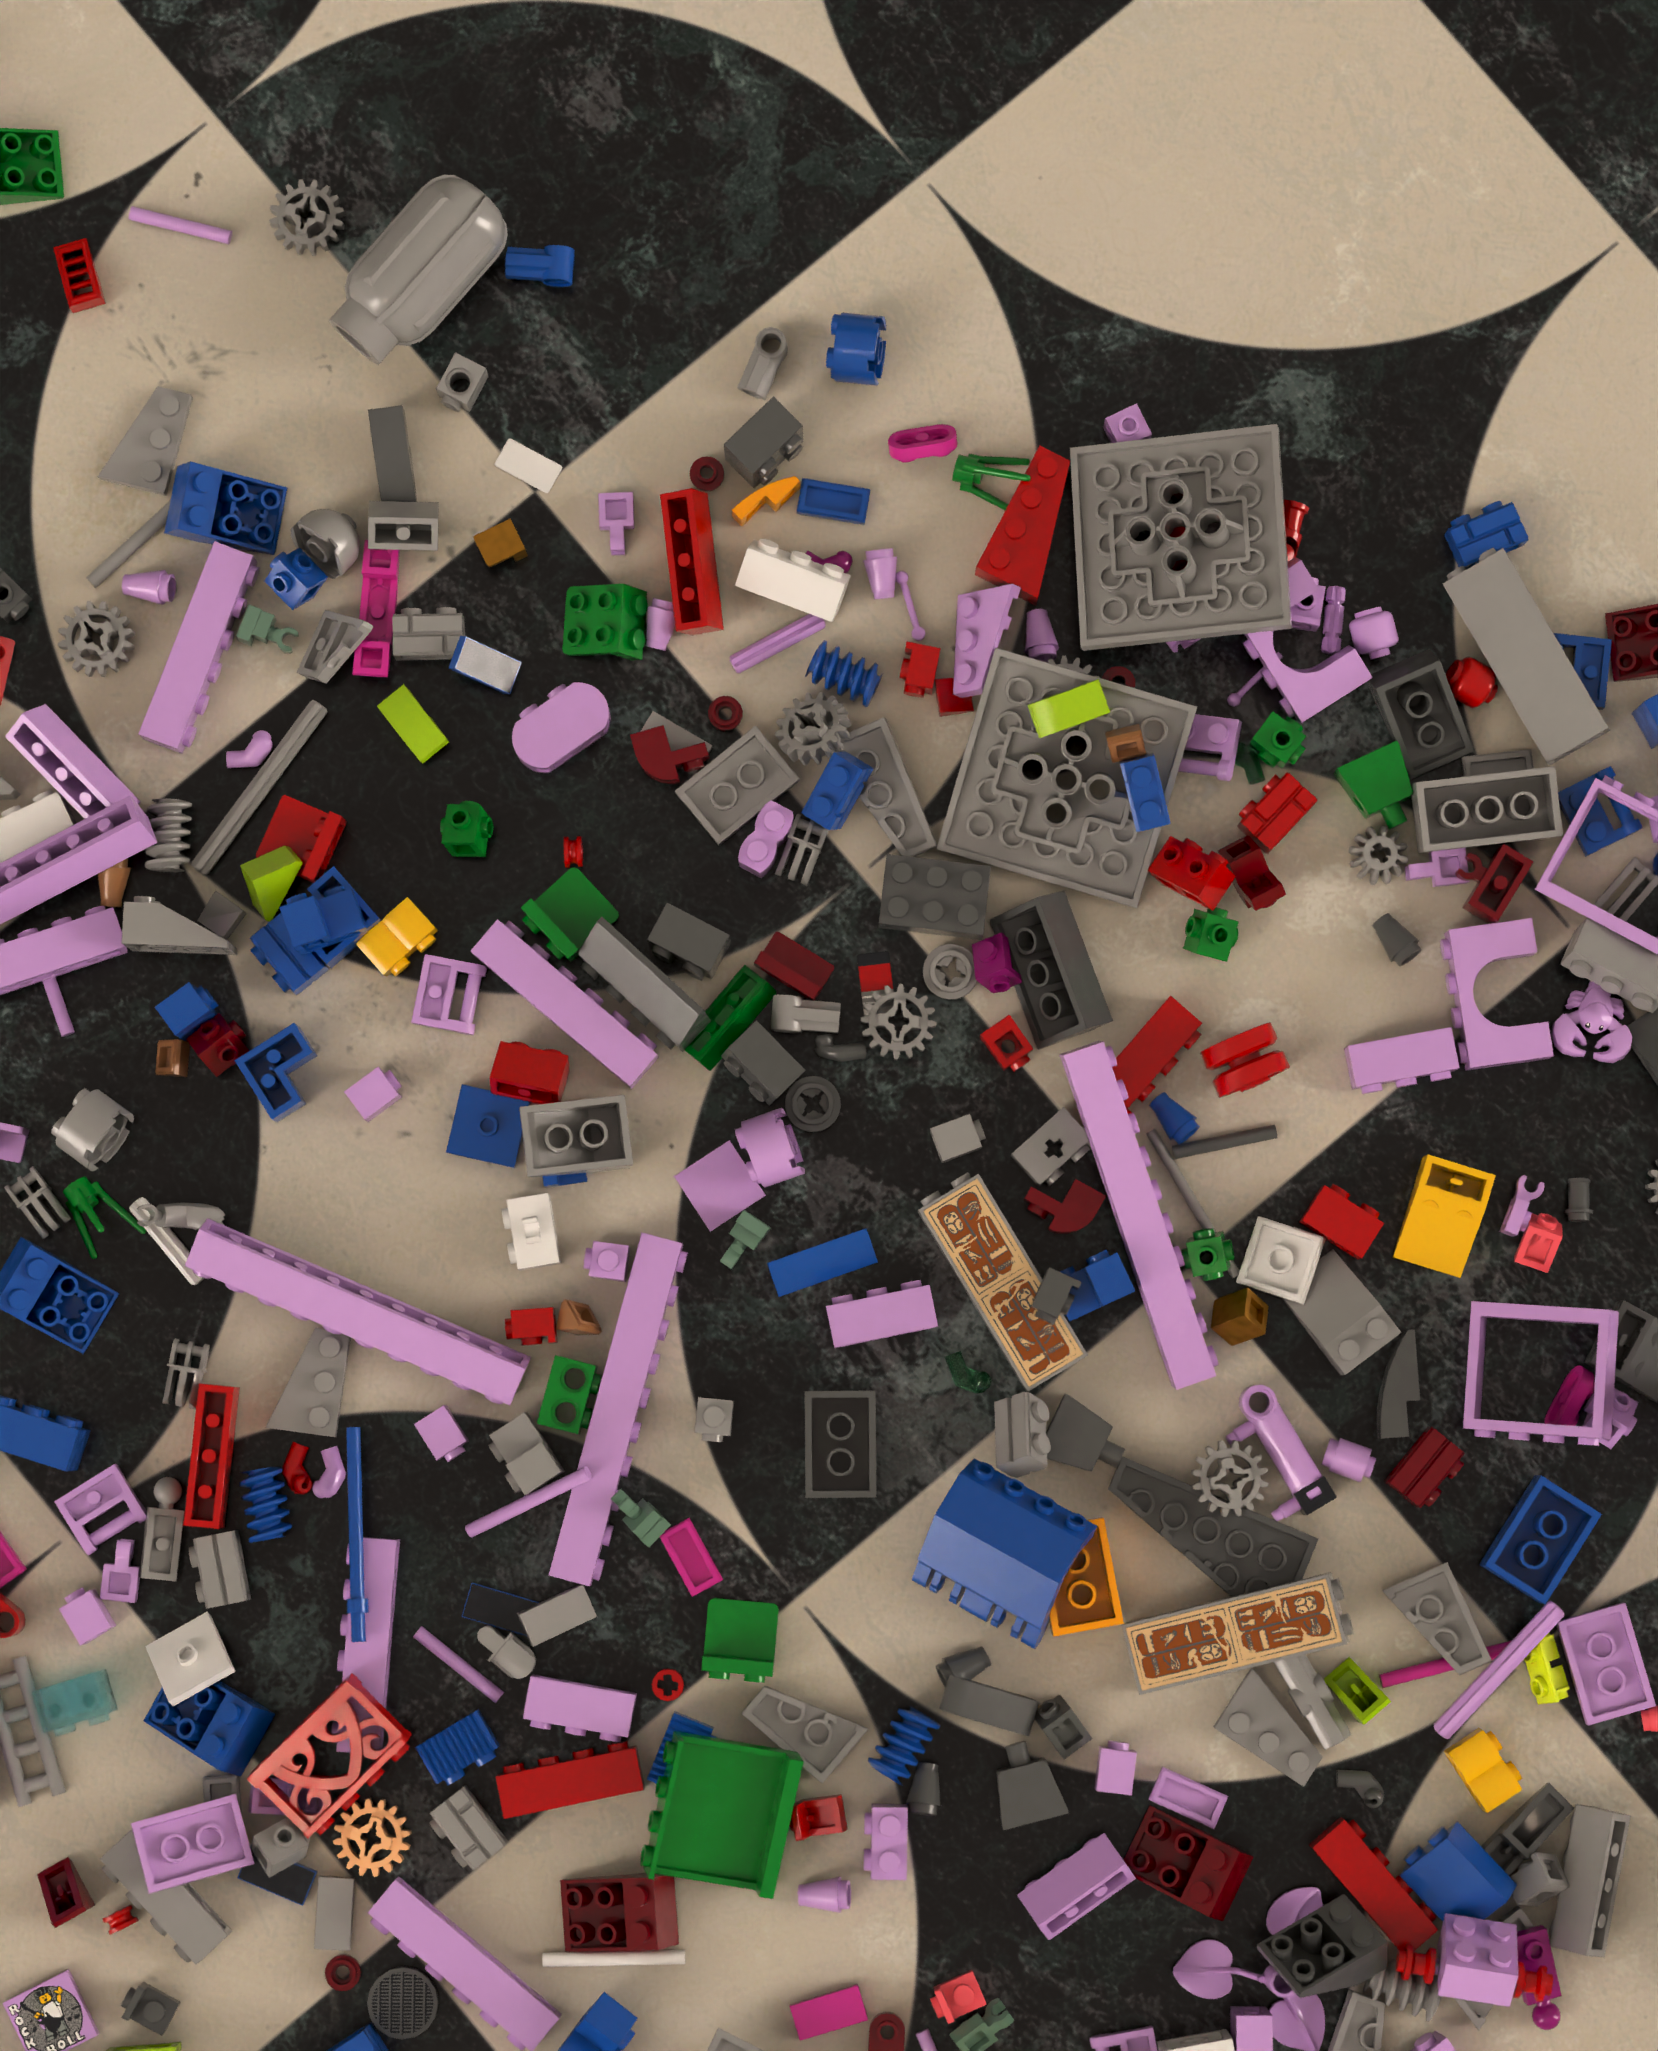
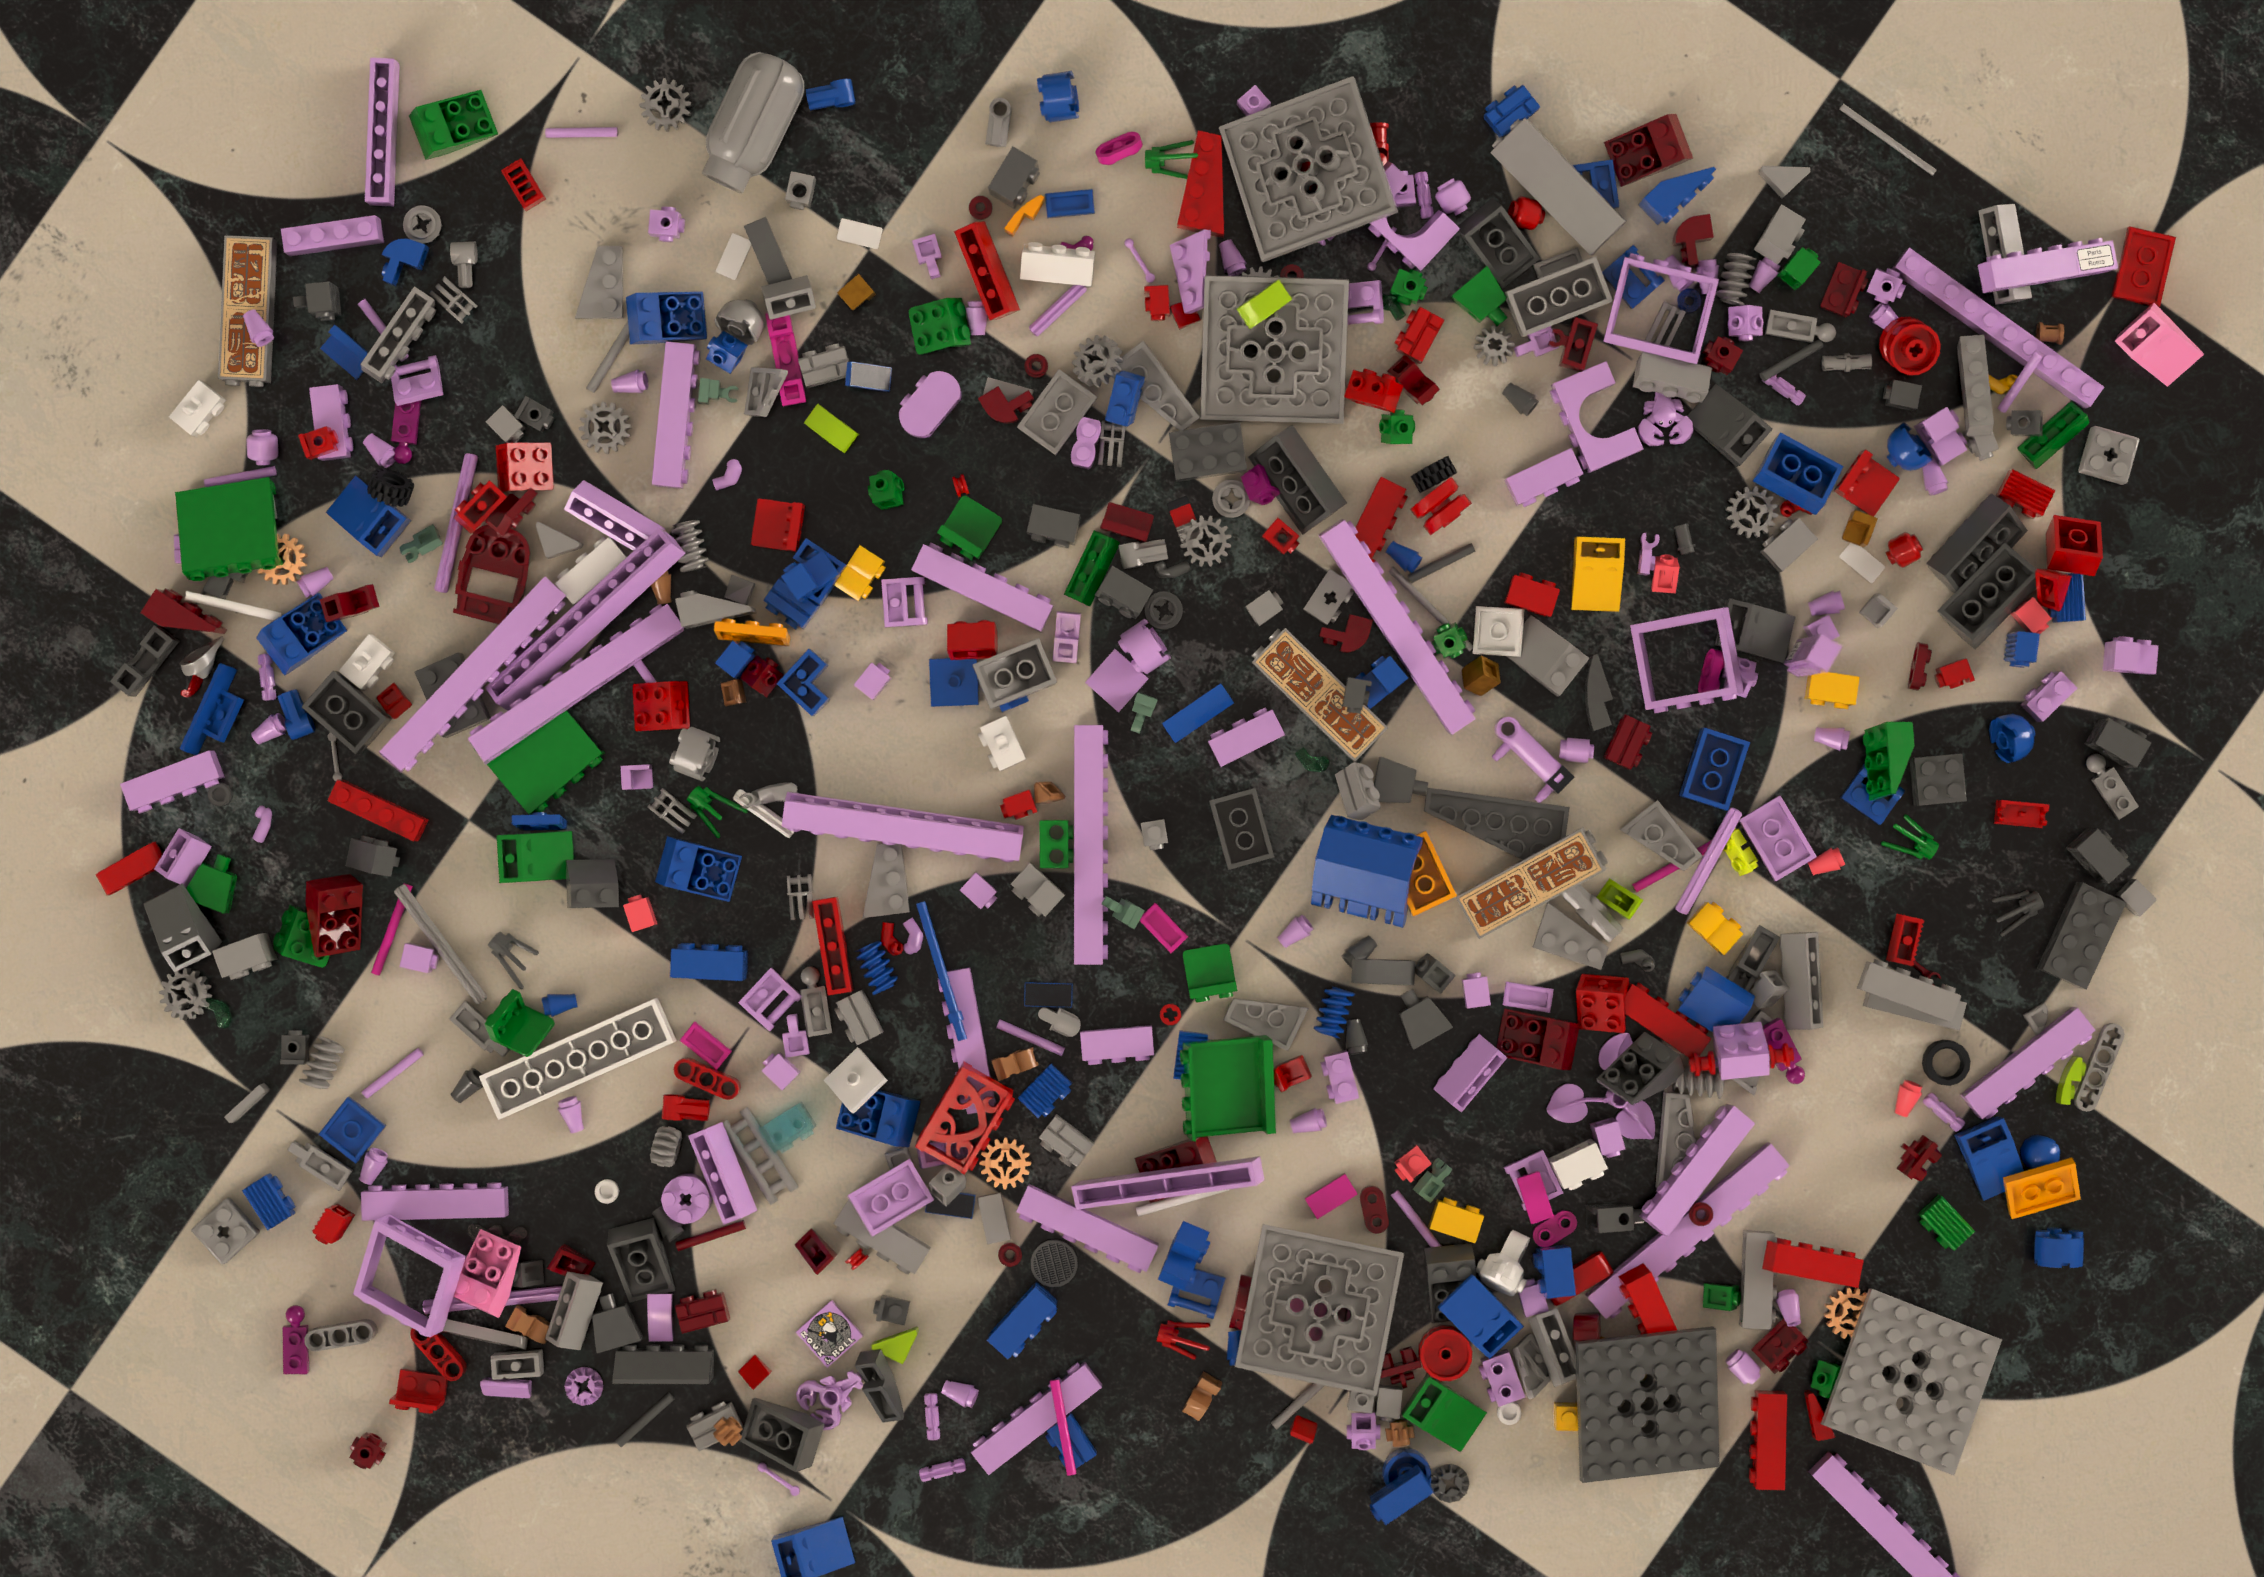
camera: 15 degrees left, 5 degrees up
(65, 1049) = (661, 706): none -> red bracket
(221, 979) = (752, 632): none -> light orange plate
(252, 372) = (657, 223): none -> lavender brick
(259, 787) = (740, 497): light grey axle -> none
(270, 879) = (766, 557): lime slope -> none
(343, 451) = (733, 256): none -> white sticker
(424, 1696) = (1015, 1063): none -> medium nougat leg
(528, 1502) = (1048, 920): lavender bar -> none
(557, 1615) = (1086, 988): light grey tile -> none
(569, 1781) = (1123, 1093): red brick -> none
(597, 1930) = (1168, 1183): none -> lavender brick
(607, 1261) = (1056, 749): lavender brick -> none
(643, 985) = (1031, 562): slope -> none
(665, 1105) = (1066, 637): none -> lavender slope
(844, 673) = (1108, 318): blue piece -> none
(880, 1612) = (1295, 931): none -> lavender cone
(881, 572) = (1114, 242): lavender cone -> none
(1125, 743) = (1307, 316): medium nougat slope -> none
(1145, 792) = (1329, 346): blue brick -> none
(1233, 1495) = (1507, 793): light grey gear -> none
(1246, 1012) = (1434, 474): none -> black tyre
(1292, 1835) = (1602, 1003): none -> red bracket

